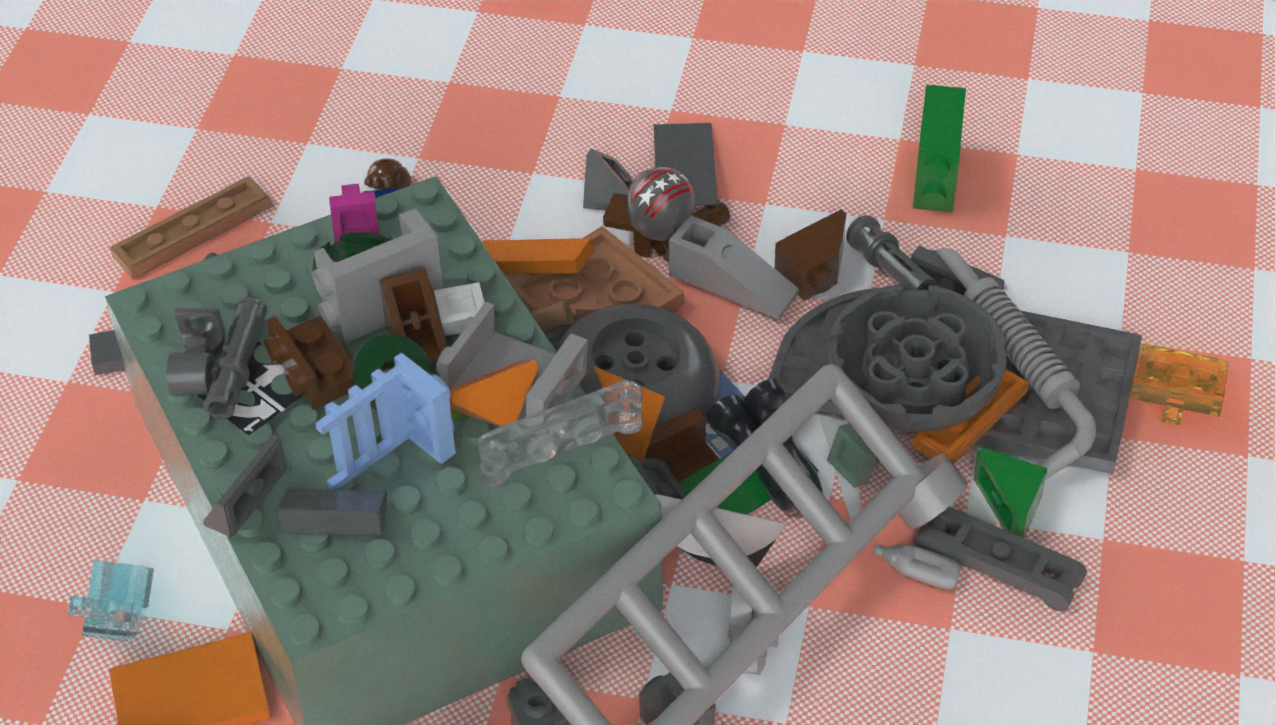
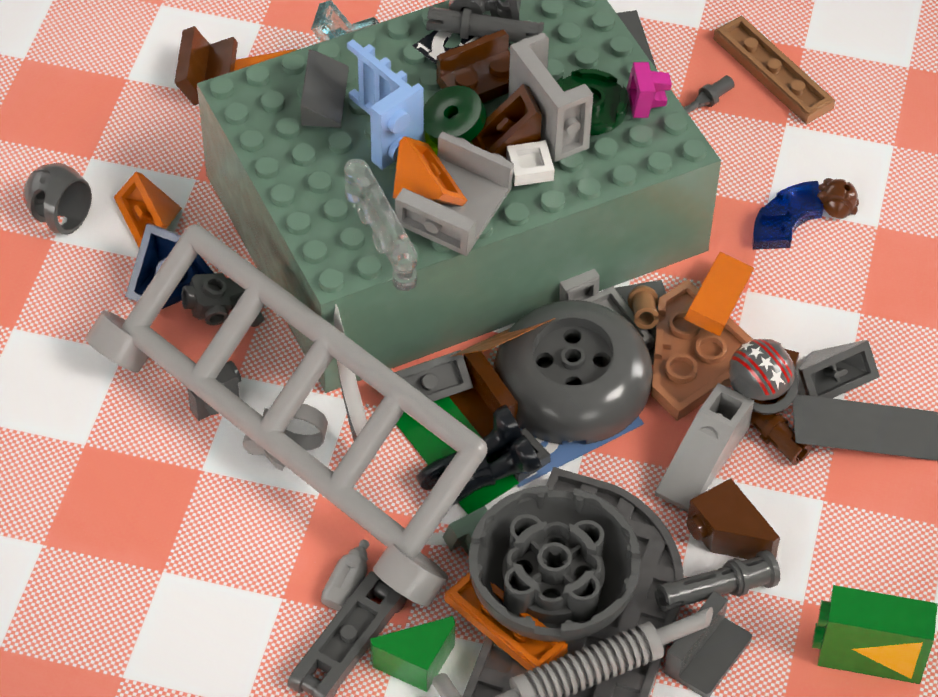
camera: 90 degrees right, 5 degrees up
(248, 489) = (336, 34): dark grey slope -> none

